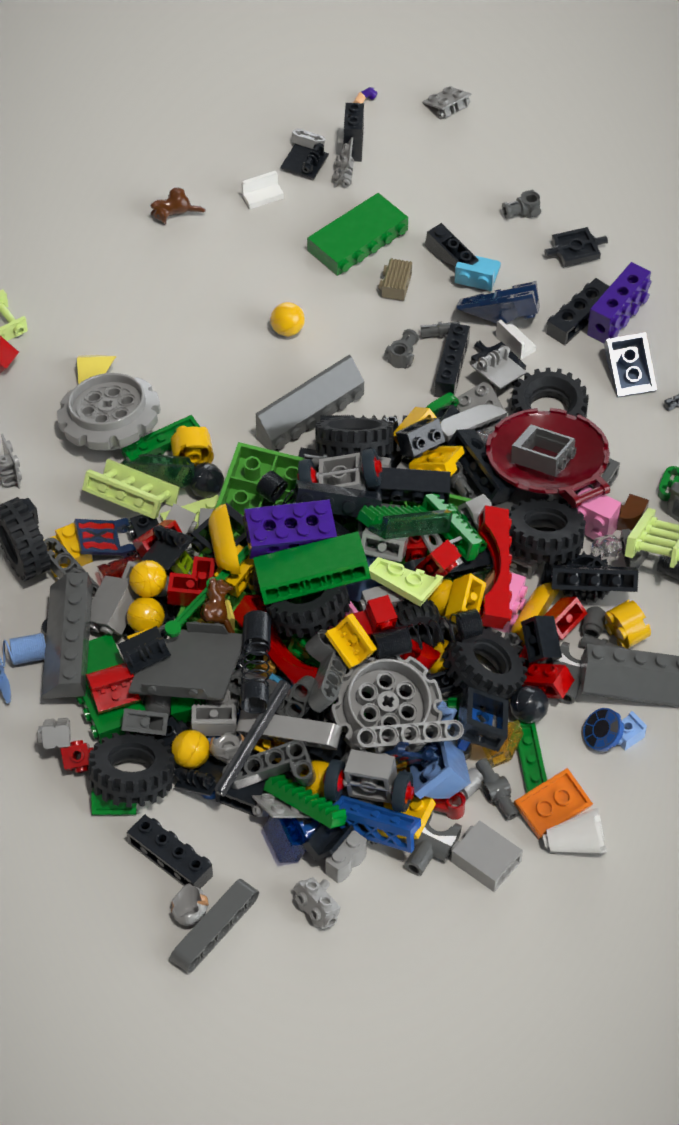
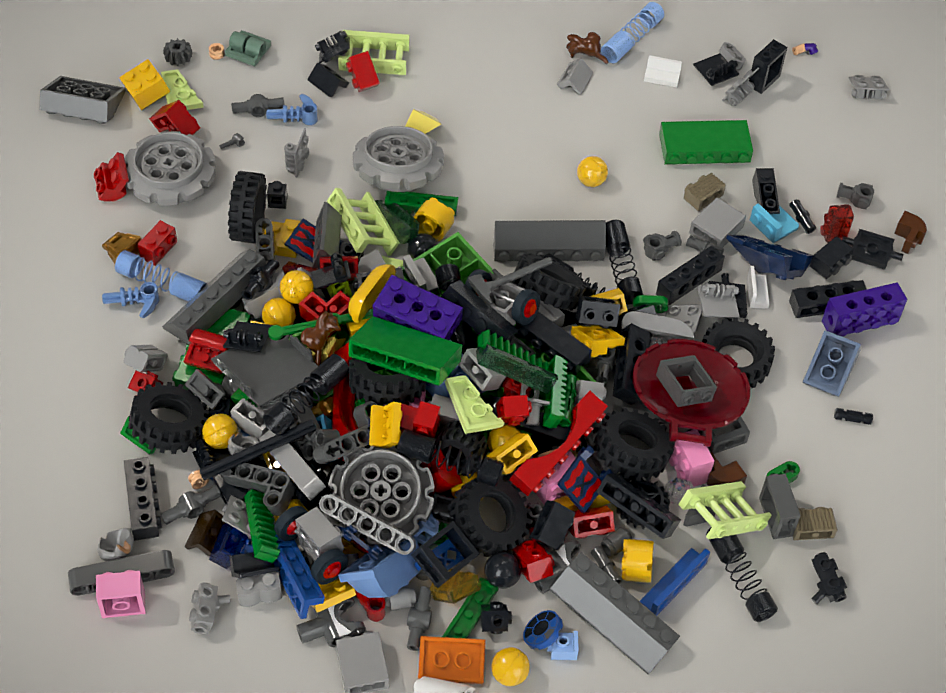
camera: 35 degrees right, 0 degrees up
(101, 594) = (260, 279): none -> black pin
(113, 522) = (326, 233): none -> dark grey slope
(186, 239) = (576, 74): none -> light grey panel
(202, 183) = (621, 42): none -> light blue piece
(202, 805) = (196, 480): none -> light nougat bush
(218, 829) = (191, 504): none -> dark grey pin
(238, 939) = (120, 594): none -> bright pink brick
(240, 498) = (420, 273): none -> light grey panel
(252, 843) = (205, 531): none -> dark brown panel
(323, 474) = (484, 288): none -> dark grey piece
(370, 370) = (617, 245): none -> black piece
(433, 301) = (717, 222): none -> light grey brick
(496, 252) = (802, 216): none -> black pin
(533, 240) = (837, 222): none -> clear red brick
(534, 587) = (581, 481): none -> flag
(552, 274) = (831, 257): none -> black brick
(557, 746) = (495, 617): none -> black brick
(595, 209) = (912, 229): none -> reddish brown brick
(605, 775) = (510, 666): none -> yellow piece
(665, 619) = (675, 580): none -> blue fence

